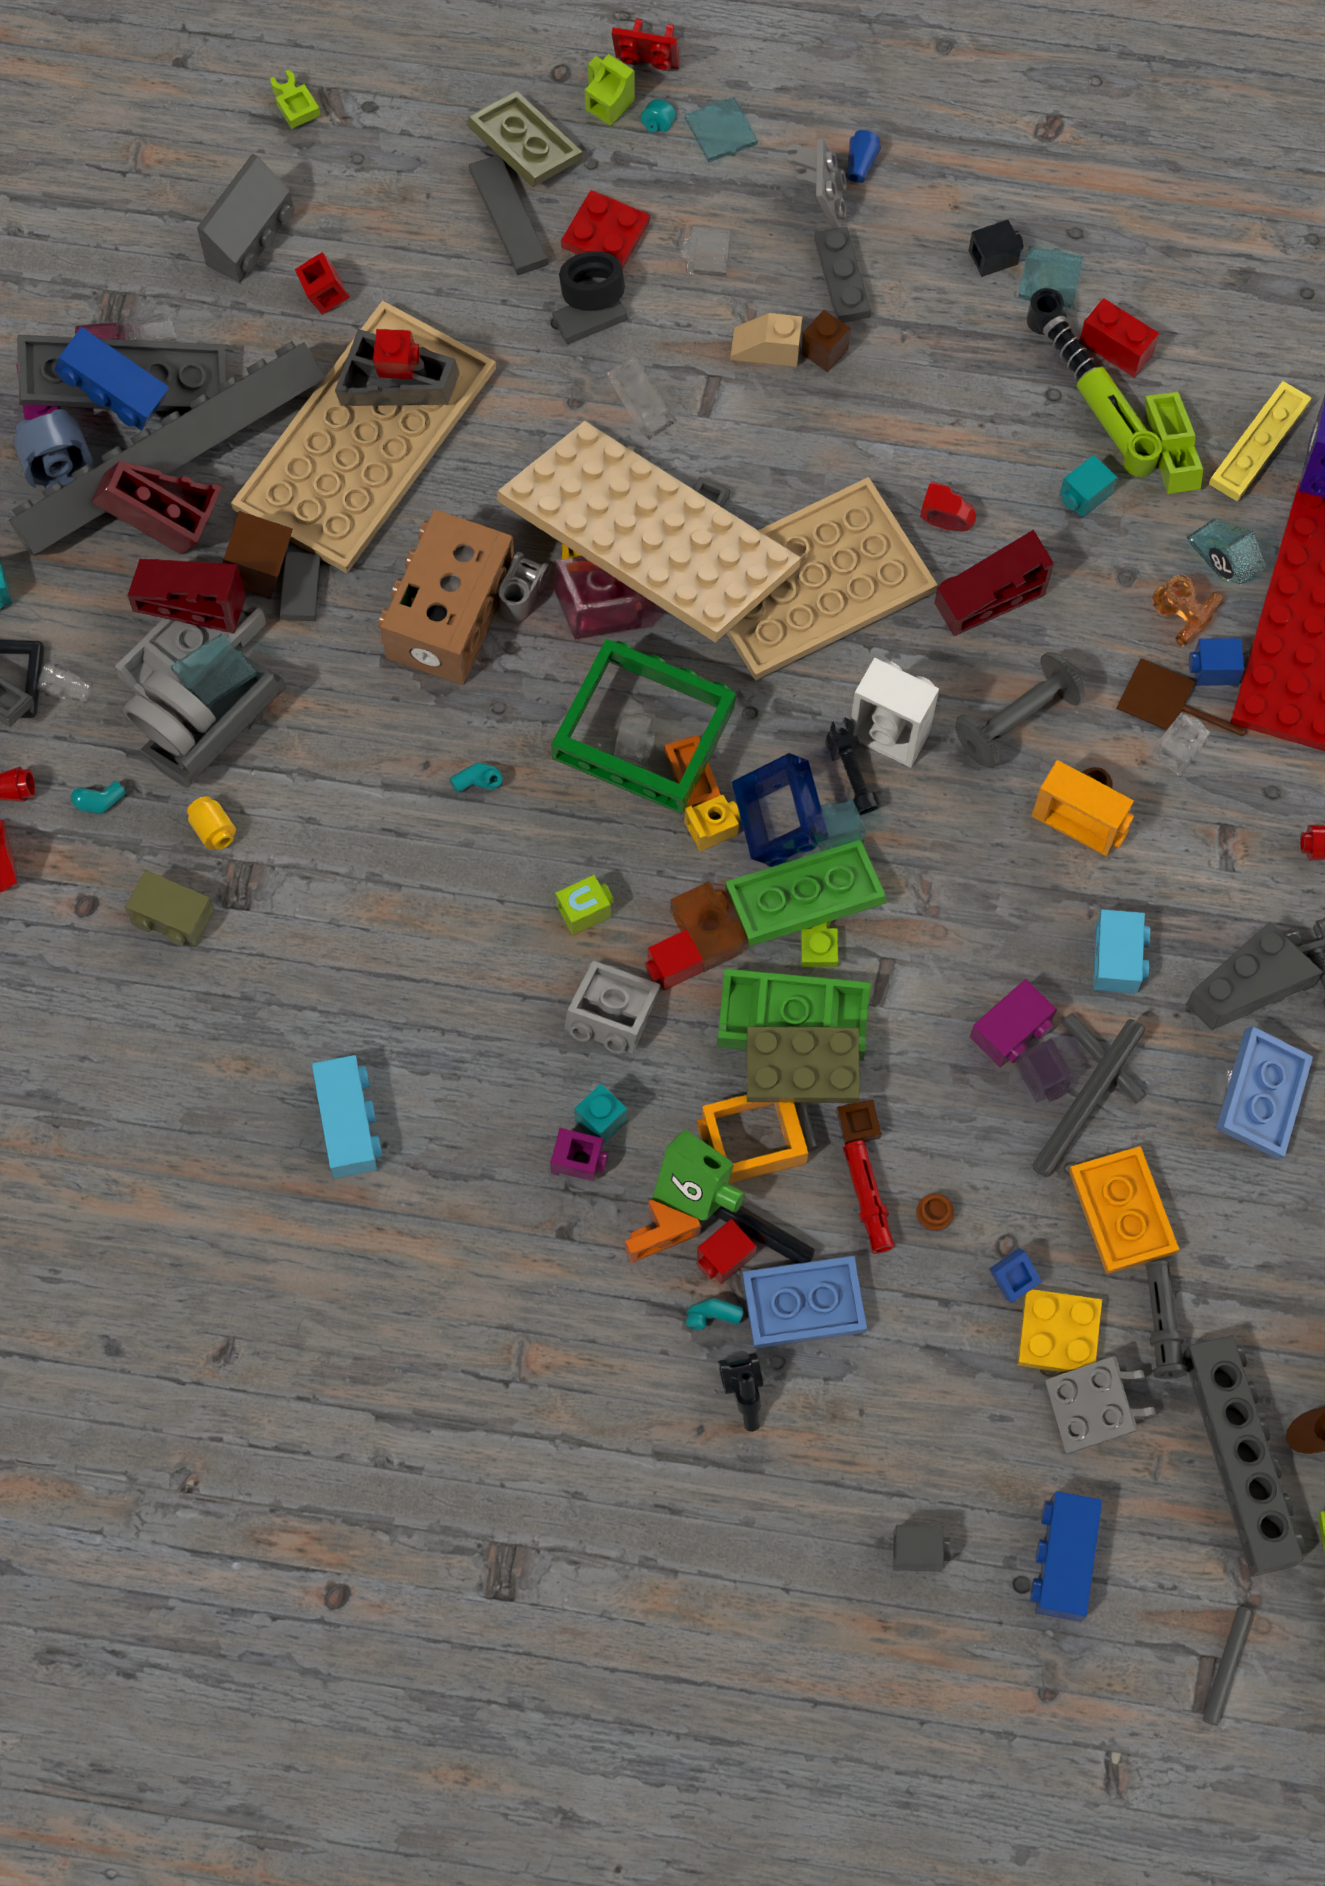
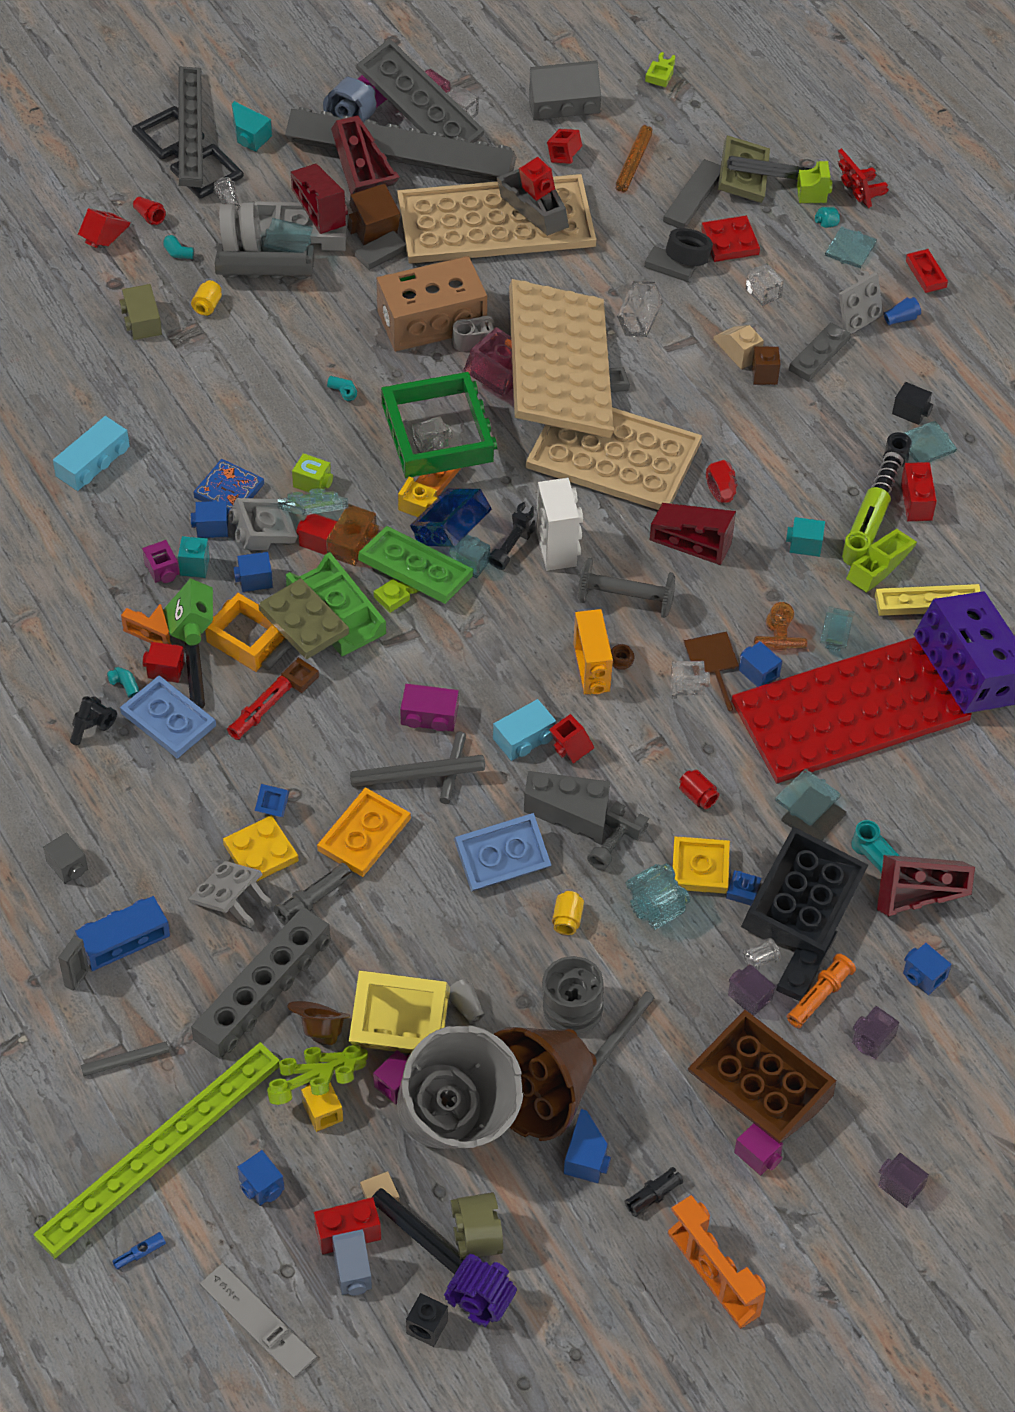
camera: 50 degrees right, 15 degrees down
(110, 379) = (406, 90): blue brick -> none
(400, 230) = (634, 158): none -> clear orange axle
(520, 1004) = (227, 483): none -> blue tile
(550, 115) = (764, 167): none -> black axle
(557, 1057) = (210, 519): none -> blue brick
(639, 935) = (315, 502): none -> clear light blue plate
(674, 1066) = (254, 572): none -> blue brick
(824, 87) = (926, 270): none -> red plate
(935, 1212) = (279, 744): dark orange plate -> none
(1044, 1071) = (414, 740): clear purple brick -> none
(1083, 1638) = (73, 963): none -> dark grey tile
(1175, 916) = (571, 739): none -> red brick

